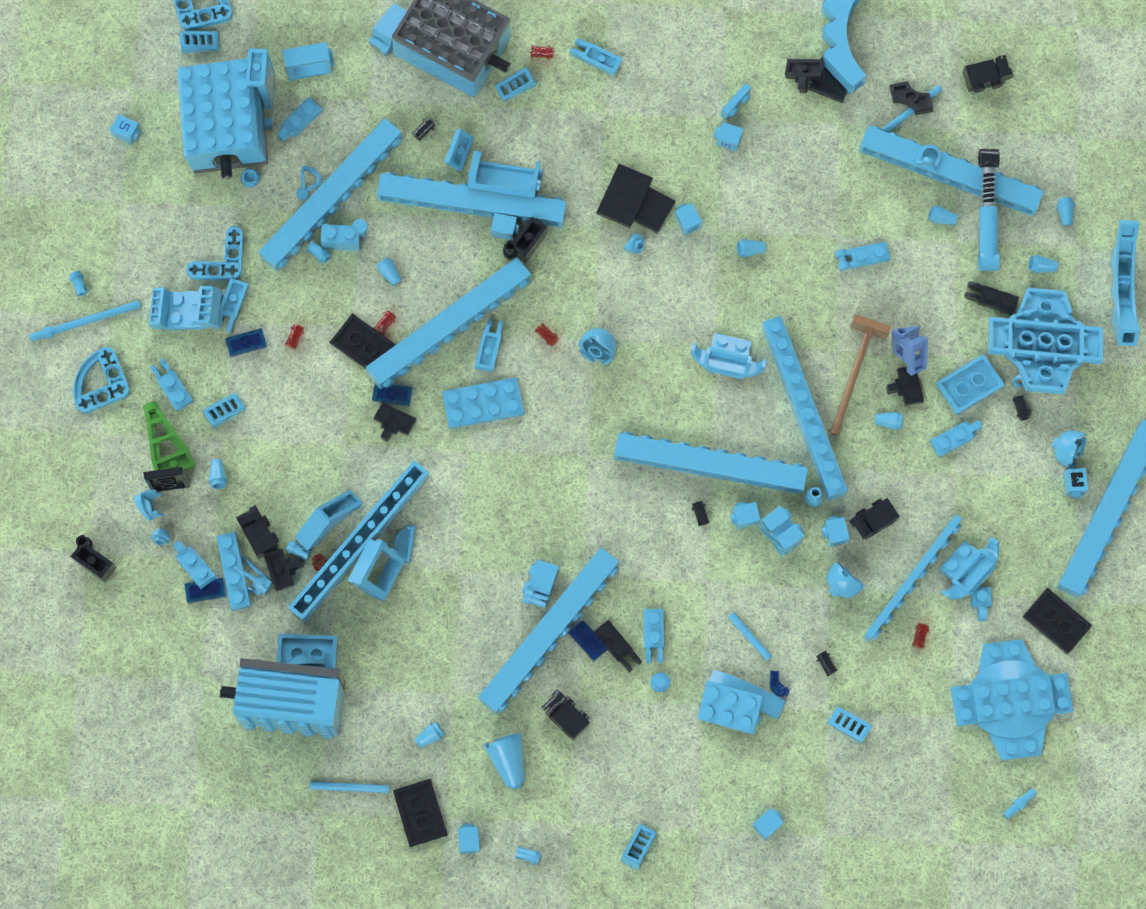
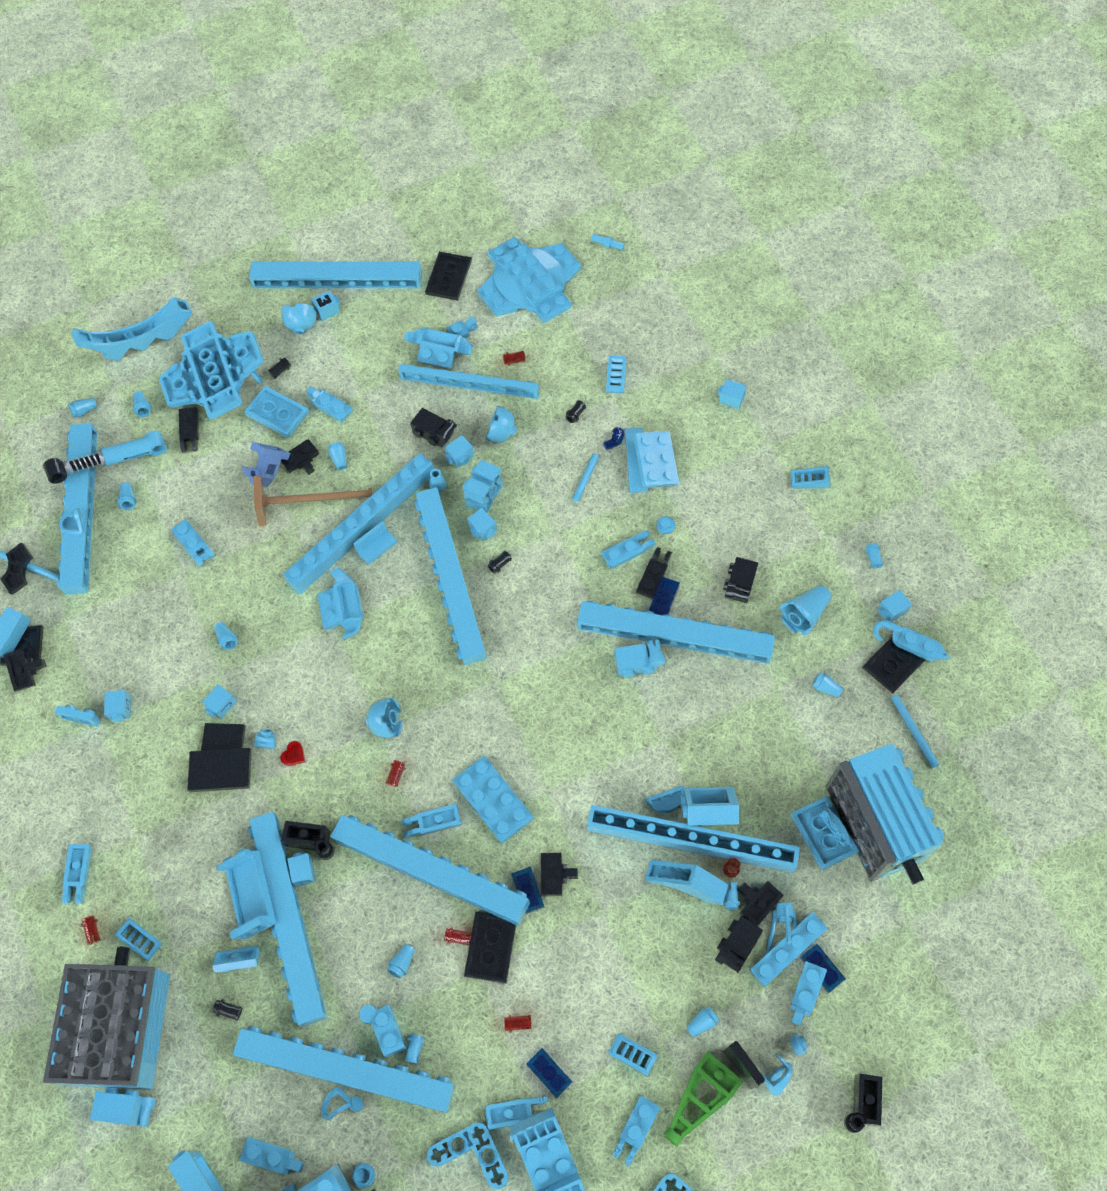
camera: 110 degrees left, 10 degrees down
(428, 833) = (912, 641): none -> medium azure plate
(609, 261) = (293, 755): none -> red tile
(776, 413) = (374, 543): none -> medium azure panel

